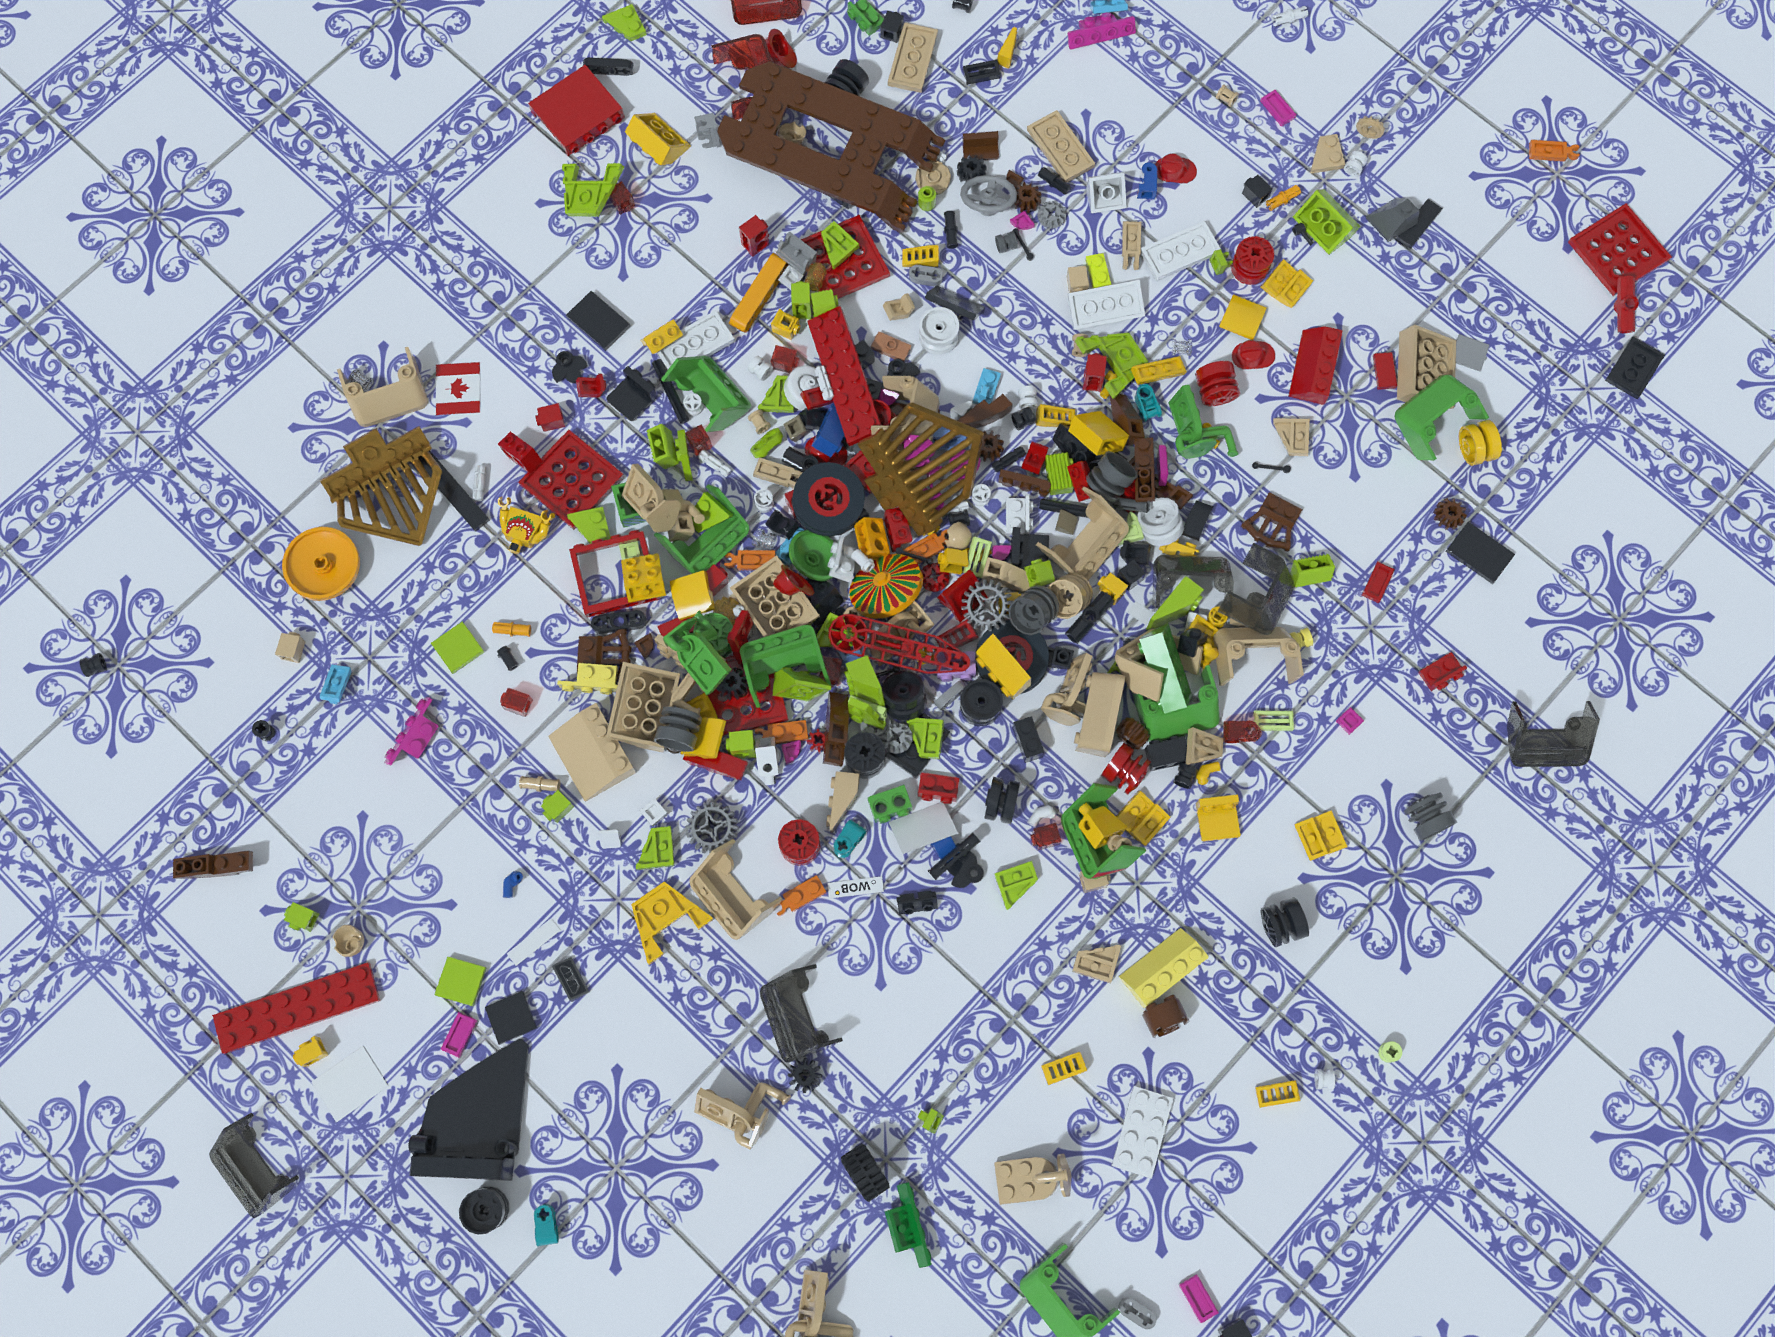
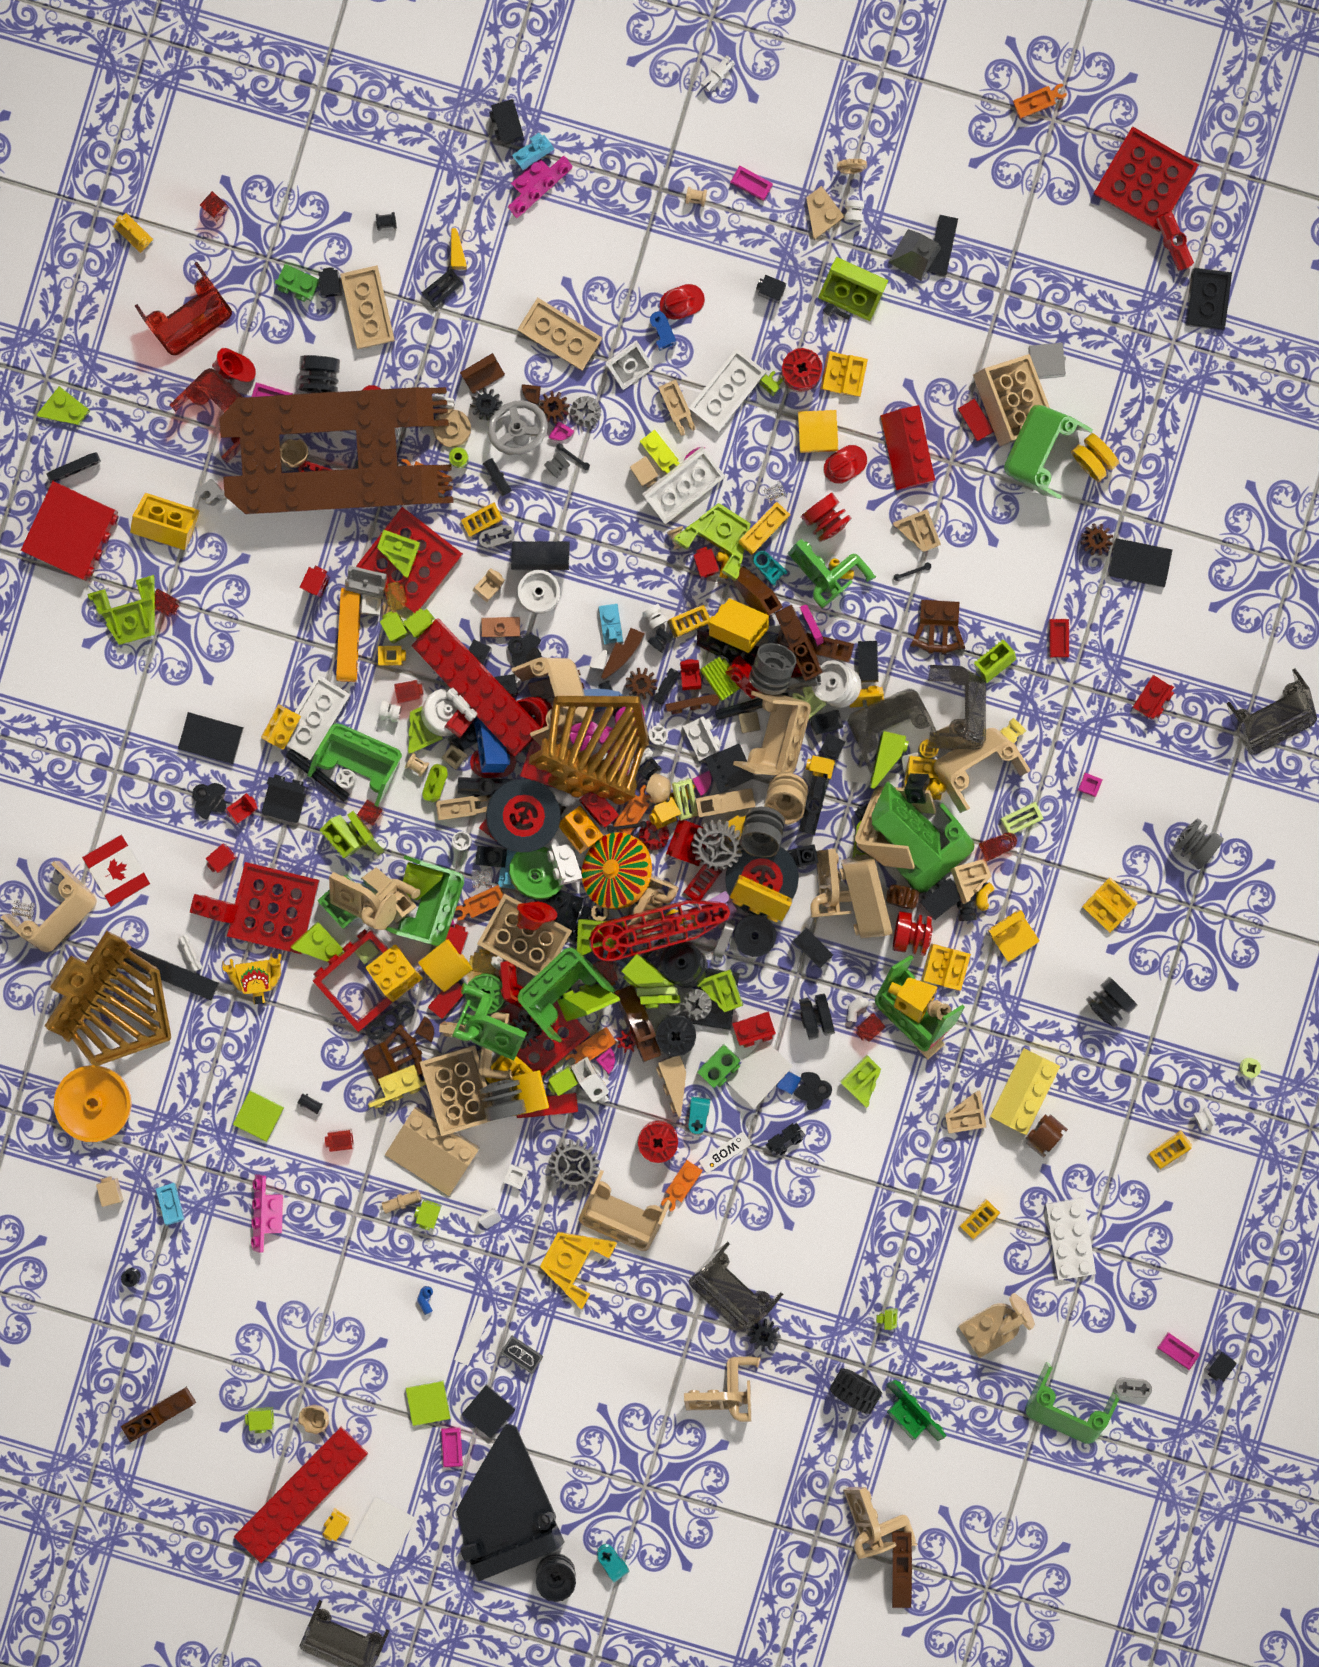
camera: 25 degrees left, 15 degrees up
(511, 629) = (297, 1075): light orange axle -> none
(657, 850) = (536, 1207): lime wing -> none
(714, 463) = (396, 825): white axle -> none
(865, 563) = (584, 857): white pin -> none
(888, 396) = (524, 684): dark pink tile -> none
(971, 840) = (802, 1077): black pin -> none
(1040, 573) = (749, 788): lime brick -> none
(1054, 180) = (571, 374): black axle -> none
(1283, 197) = (800, 282): light orange axle -> none

